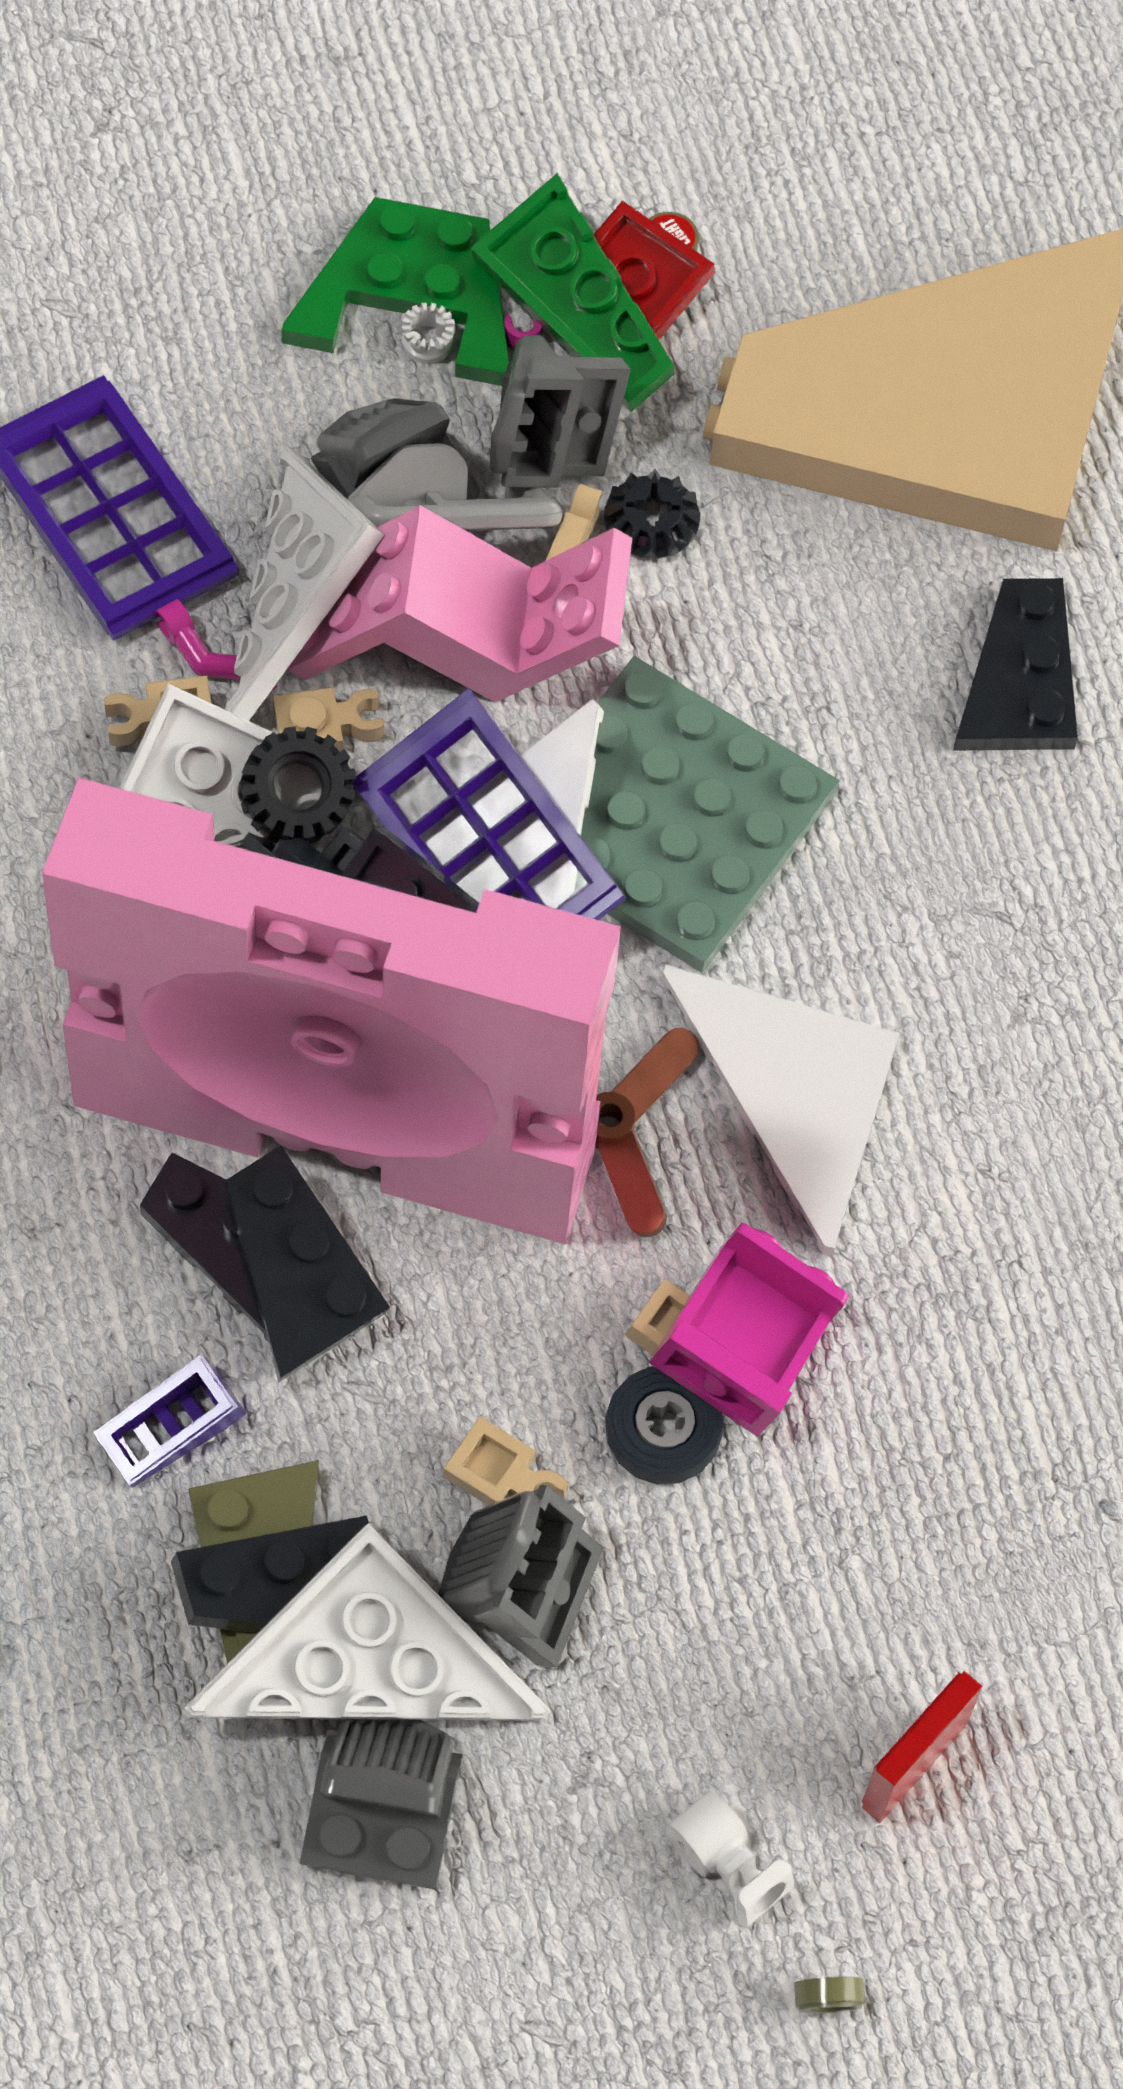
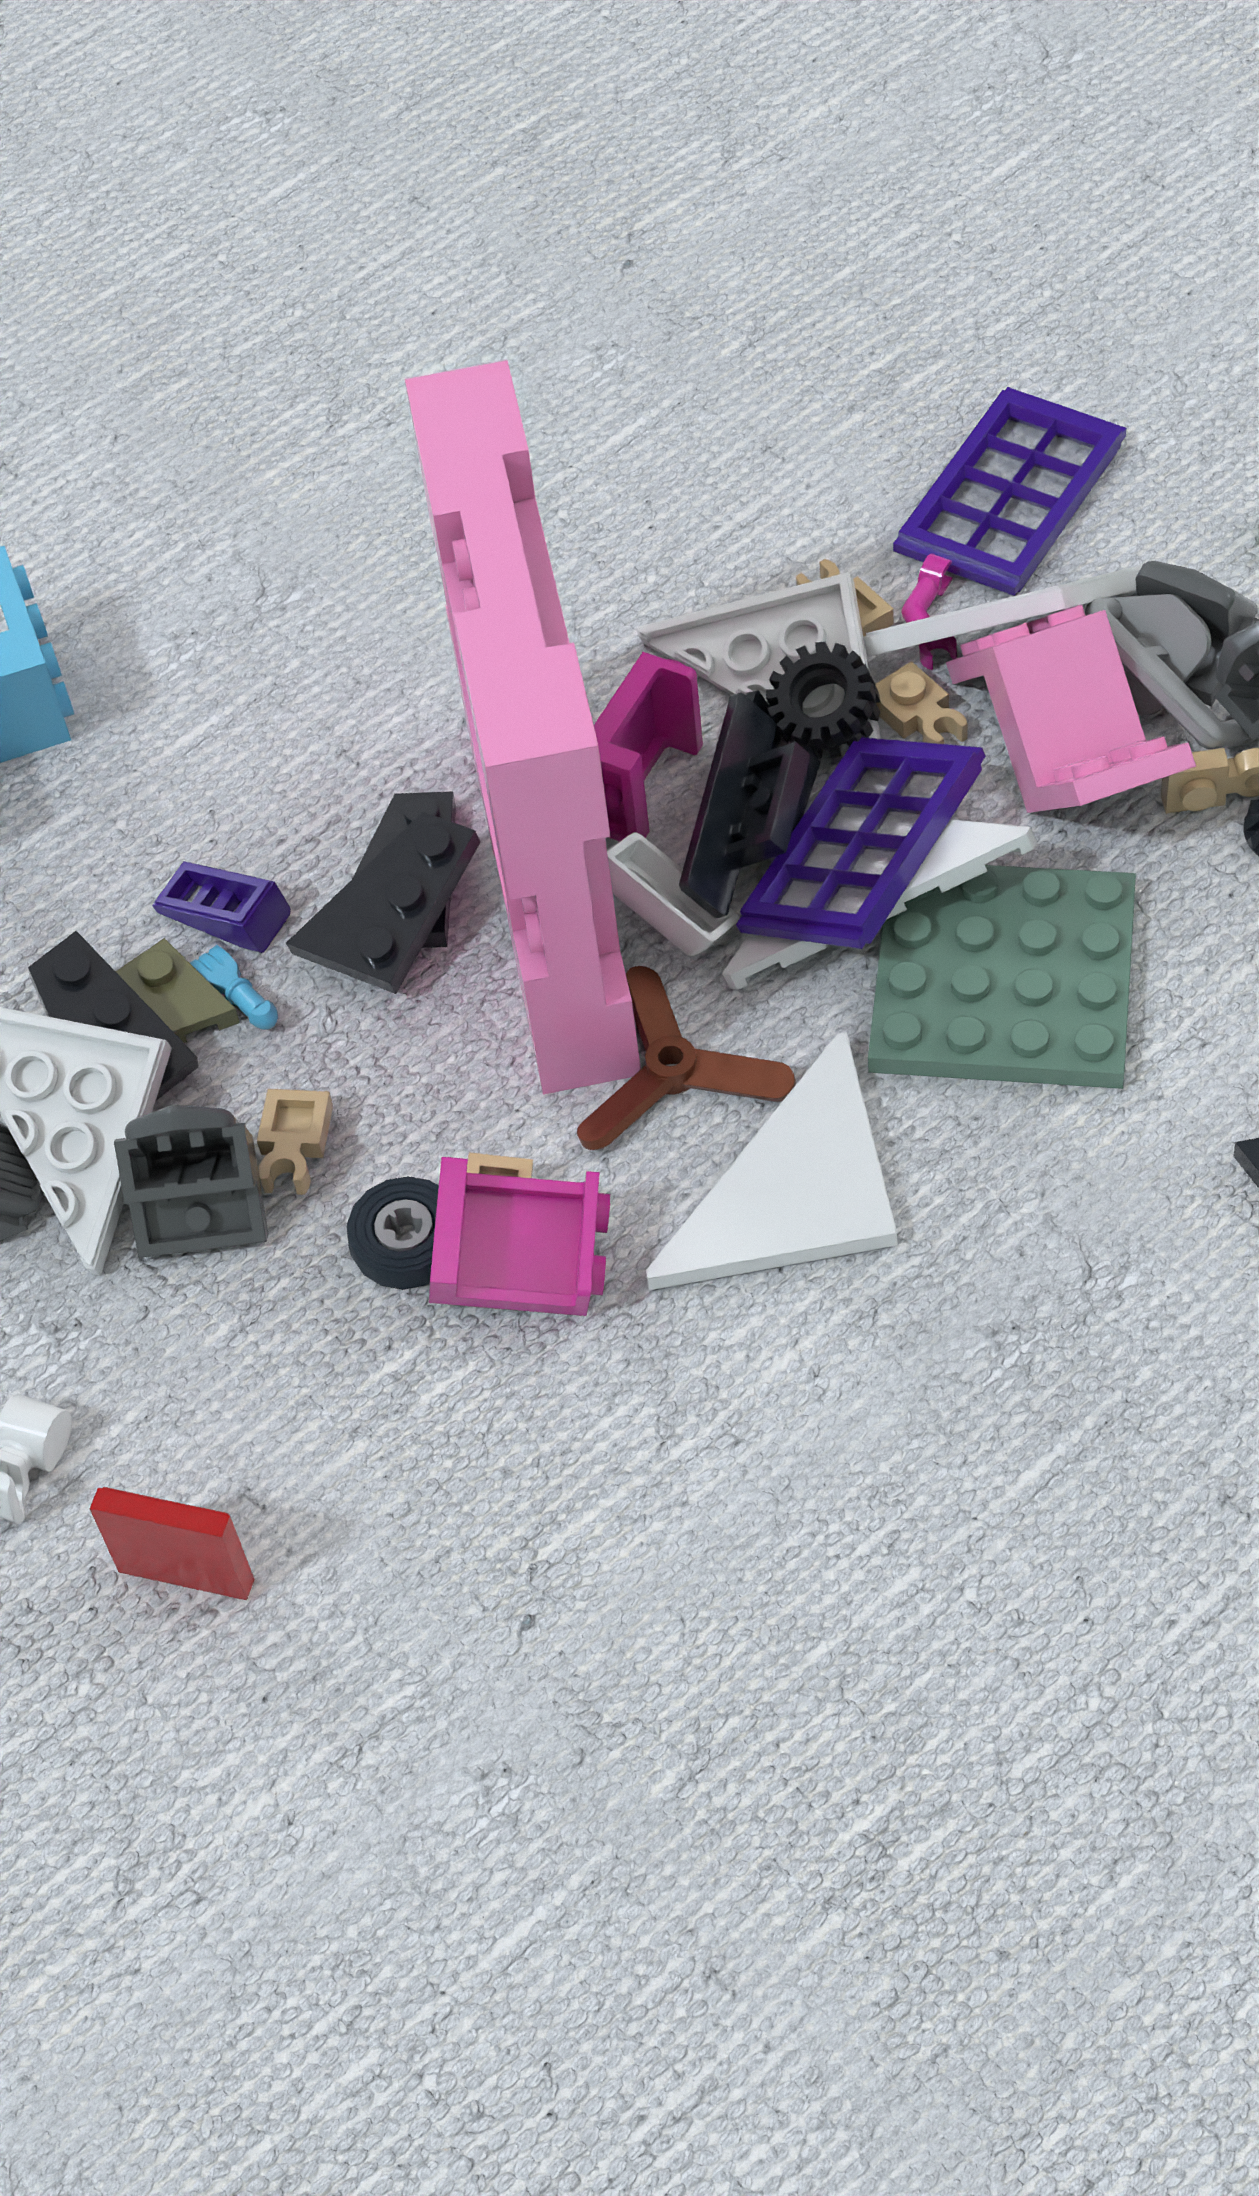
camera: 75 degrees right, 10 degrees down
(261, 1455) = (225, 977): none -> medium azure piece

